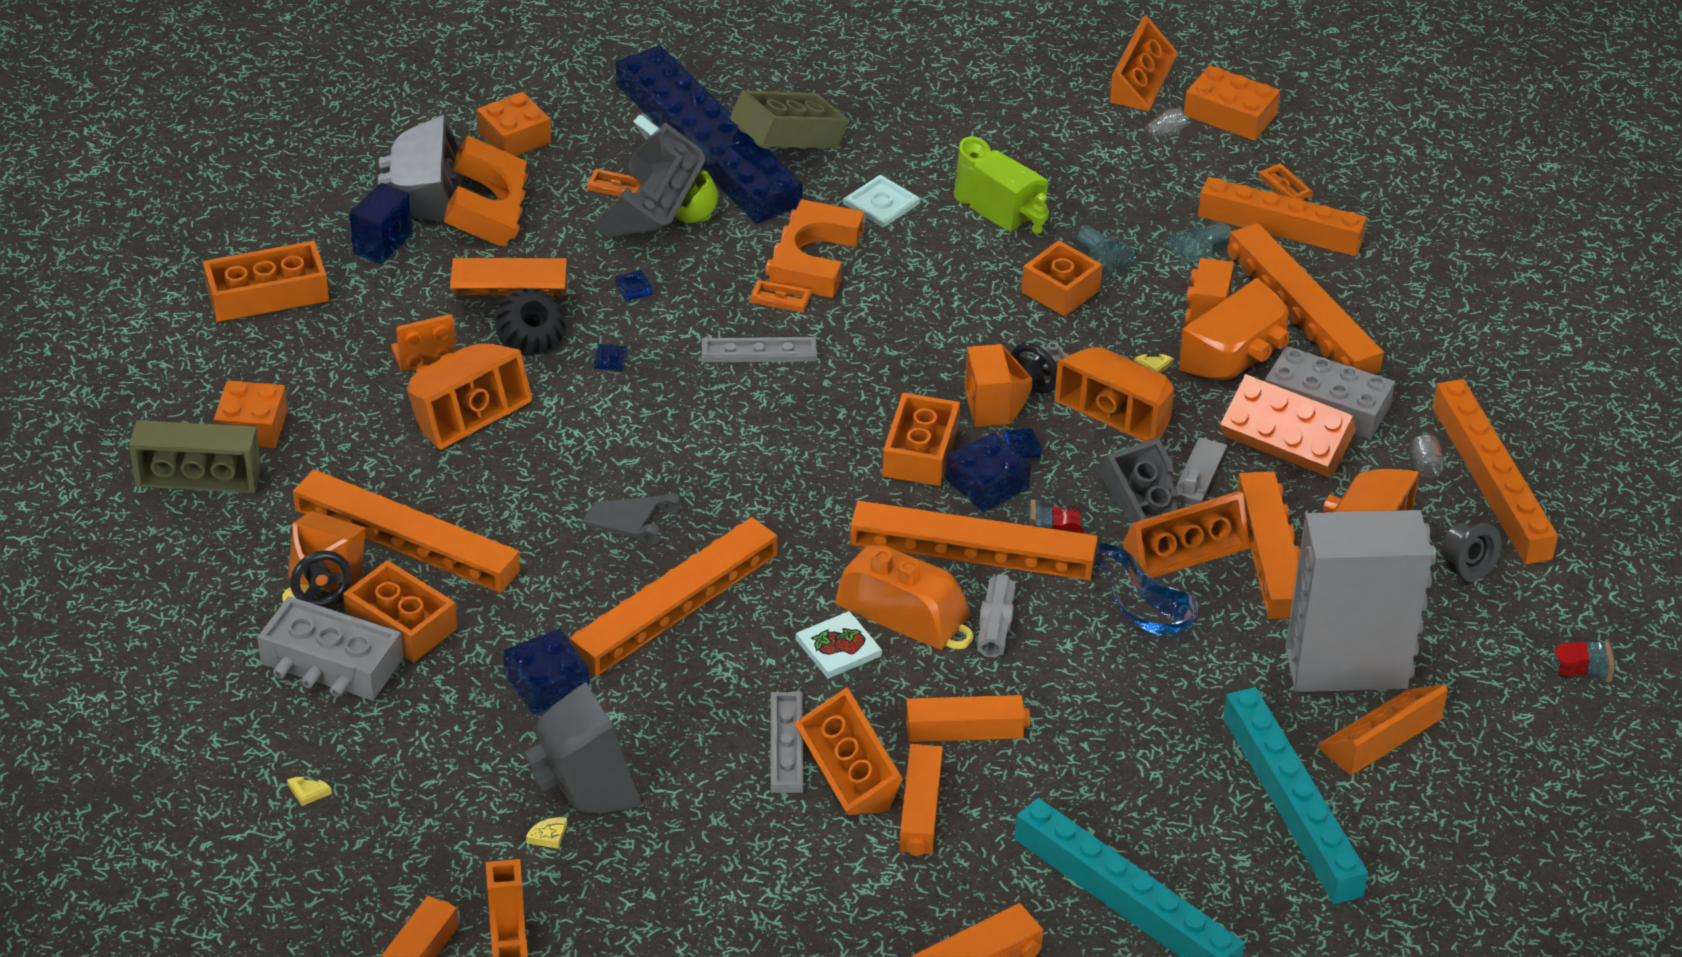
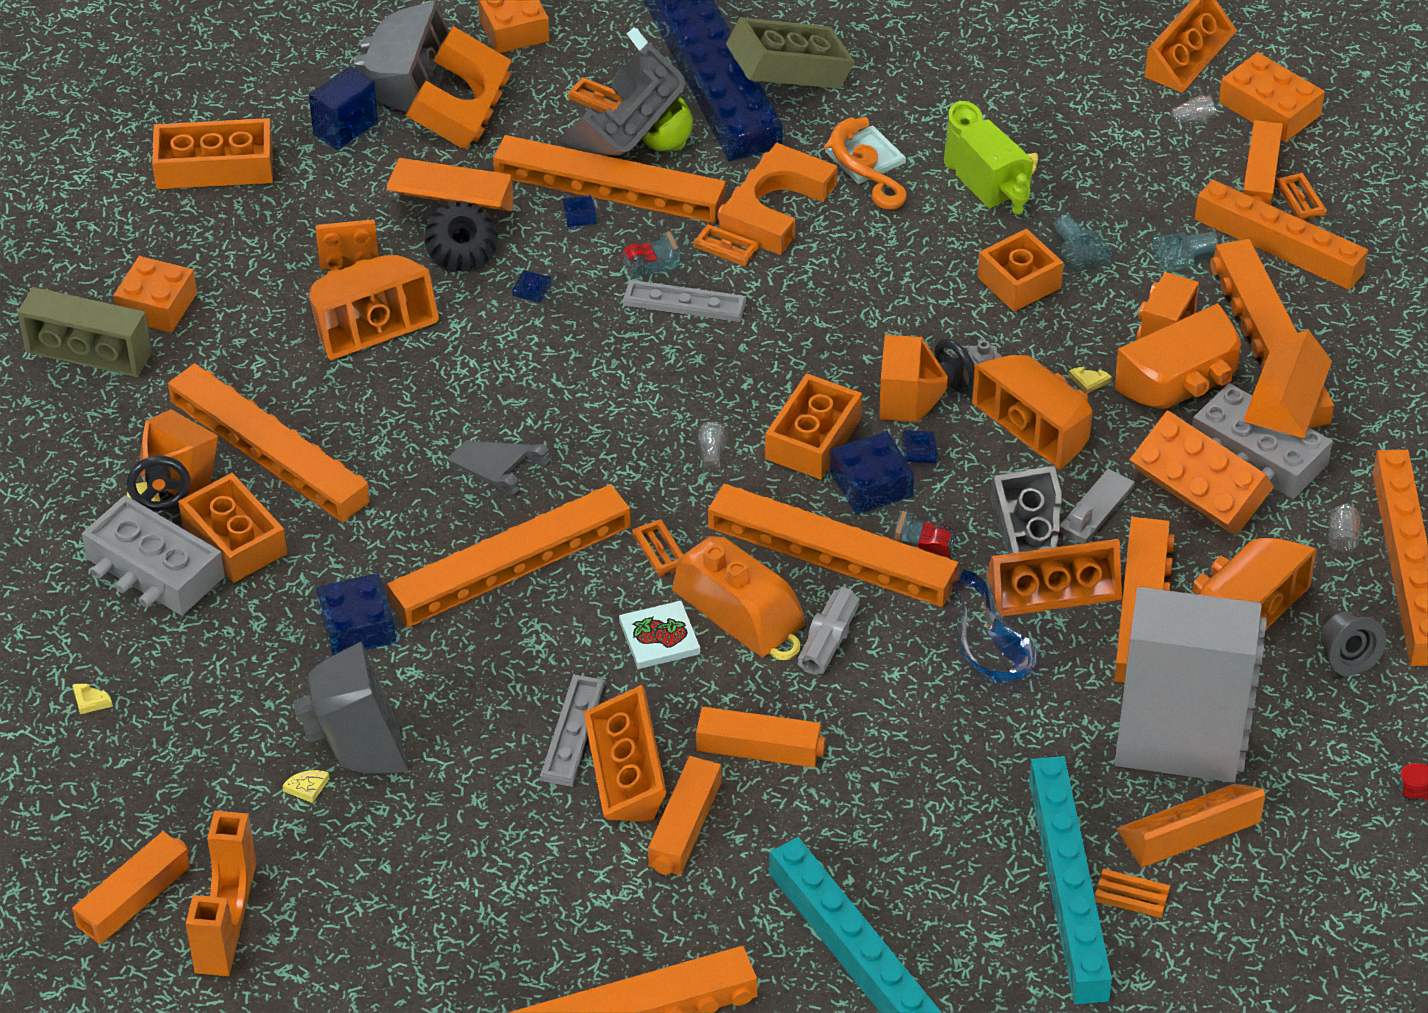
camera: 15 degrees right, 5 degrees up
(656, 252) = (610, 178): none -> orange brick
(717, 315) = (652, 257): none -> clear light blue leg
(804, 573) = (669, 566): none -> orange tile
(830, 469) = (712, 442): none -> clear cone
(884, 205) = (862, 162): none -> orange plant
(1243, 155) = (1263, 160): none -> orange brick
(1341, 338) = (1289, 385): none -> orange slope
(1353, 798) = (1134, 888): none -> orange tile

